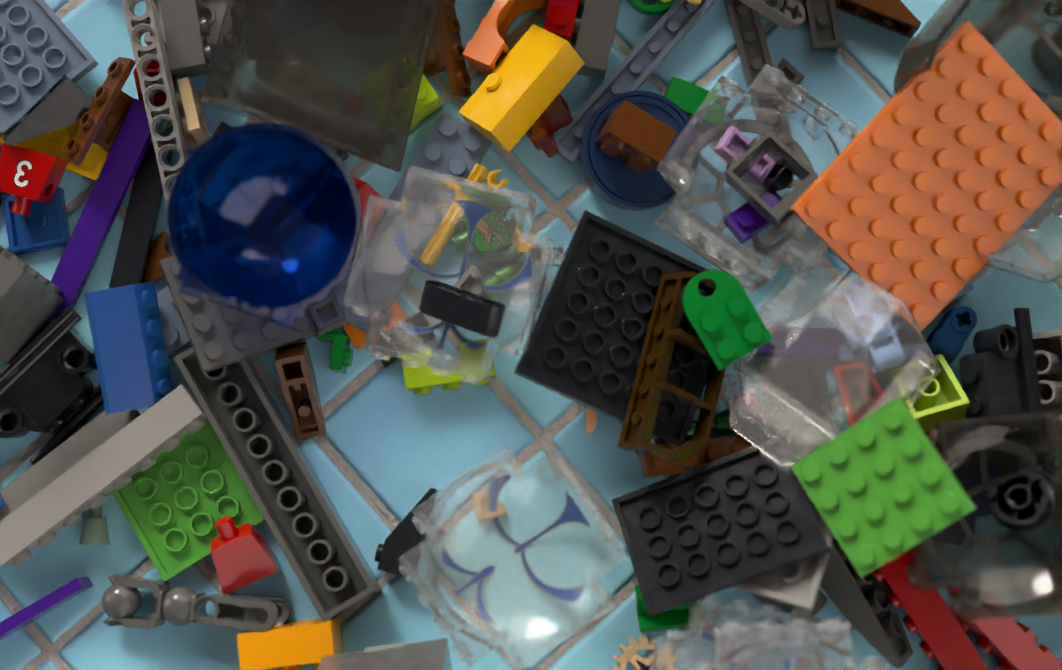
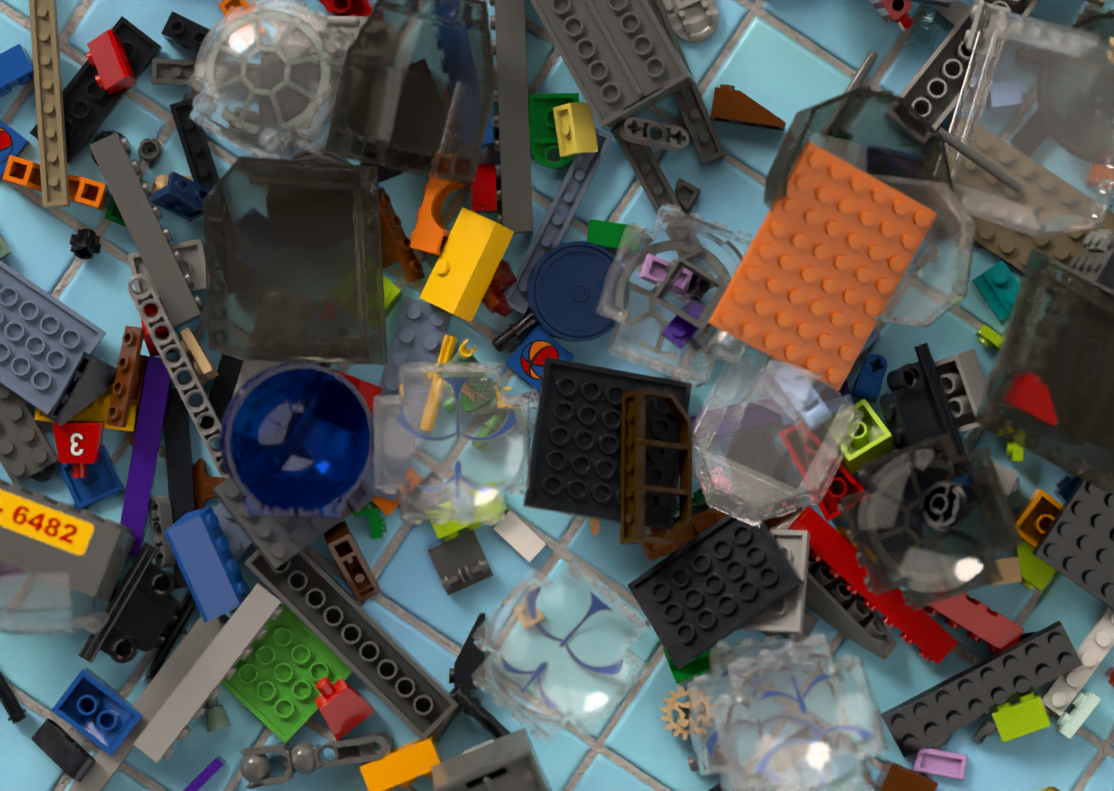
camera: 20 degrees left, 5 degrees up
(99, 279) = (160, 521): none -> dark grey beam
(394, 598) = (473, 707): none -> black pin
(425, 424) = (460, 562): none -> dark grey hinge
(462, 308) = (467, 463): black beam -> none
(471, 281) = (469, 443): light grey tile -> none
(501, 411) = (519, 536): none -> white tile
(555, 180) = (514, 332): none -> black axle
(564, 211) = (530, 356): none -> tile
(635, 137) = (571, 288): reddish brown brick -> none
(725, 319) = (679, 421): green plate -> none
(882, 487) = (829, 525): bright green plate -> none

